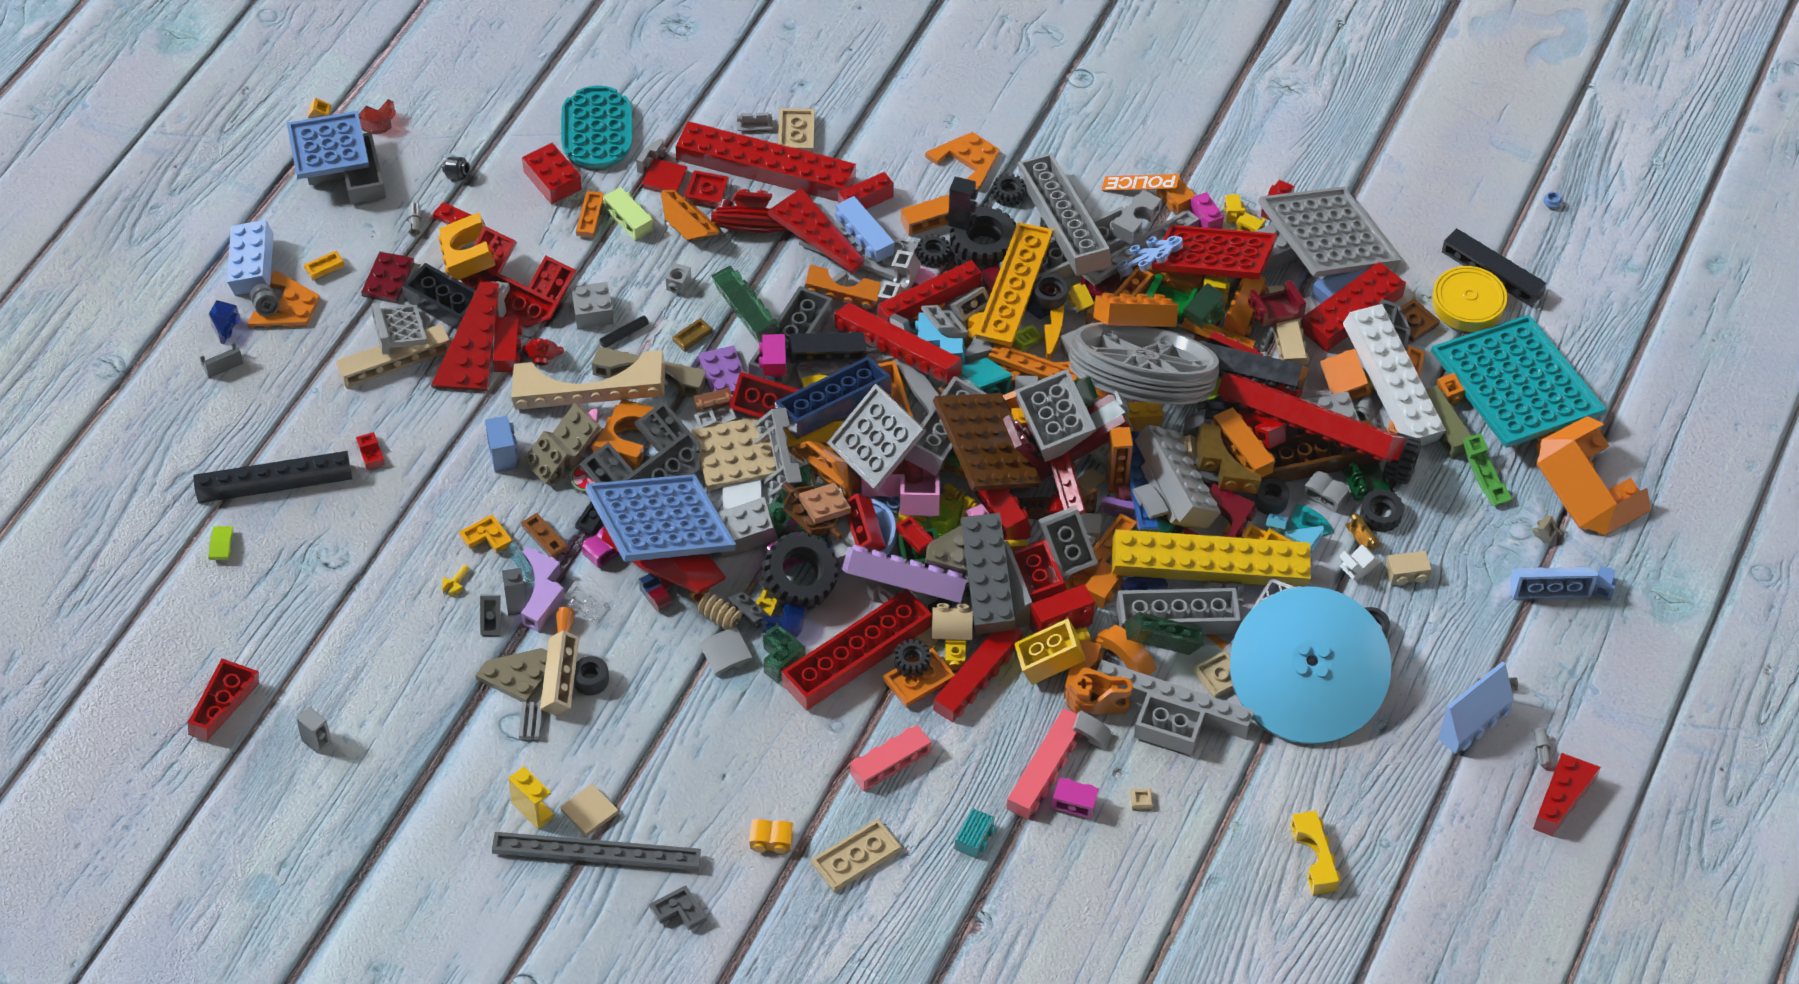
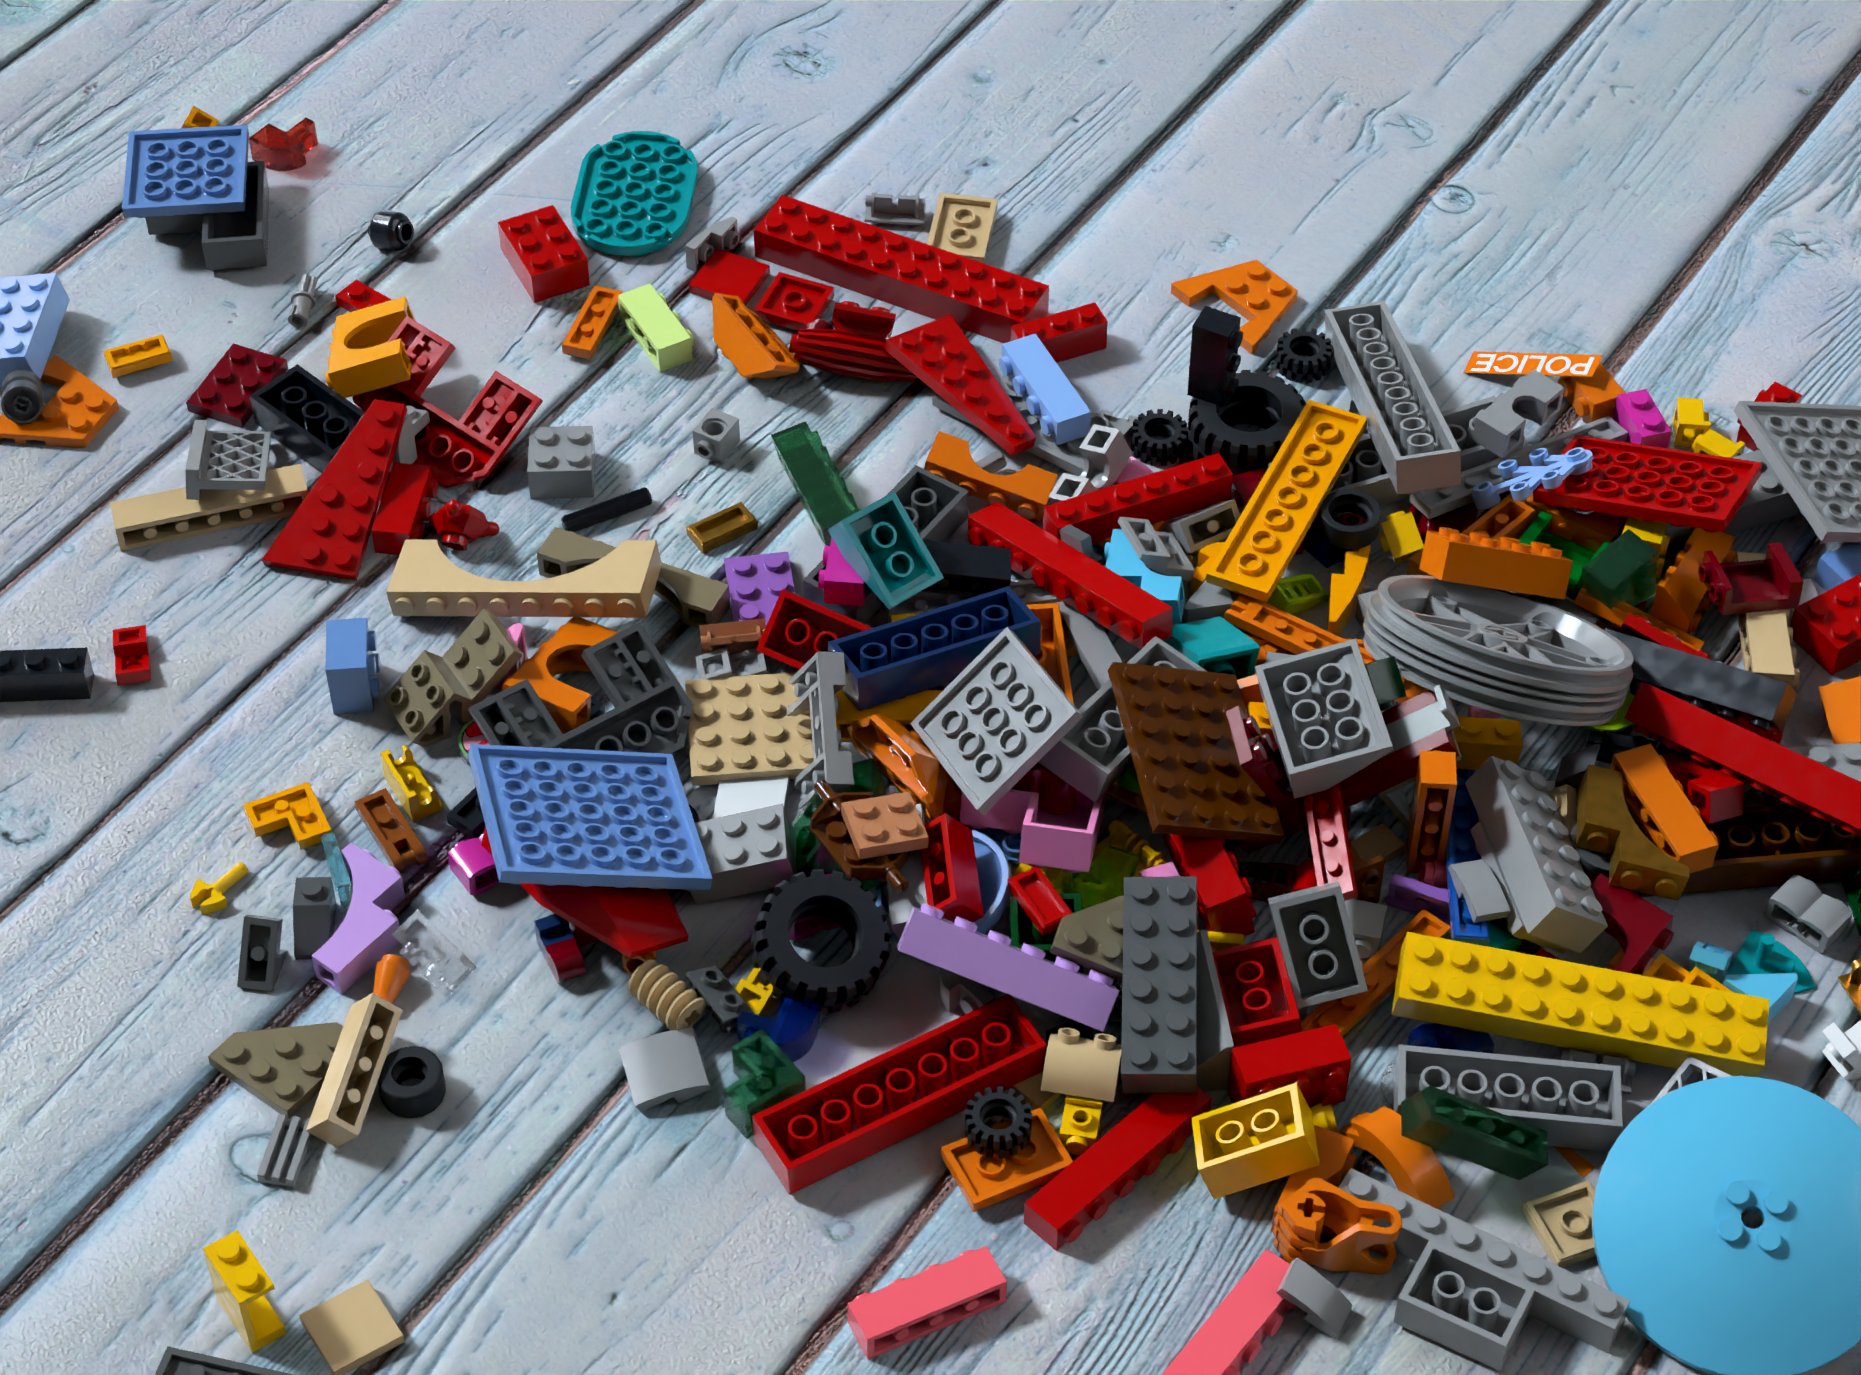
camera: 10 degrees right, 5 degrees down
(549, 509) = (410, 785): none -> yellow hinge
(796, 343) = (886, 550): none -> teal slope
(925, 215) = (1152, 381): orange brick -> none
(1104, 585) = (1375, 1033): orange brick -> none
(1274, 487) = (1709, 895): black tyre -> none

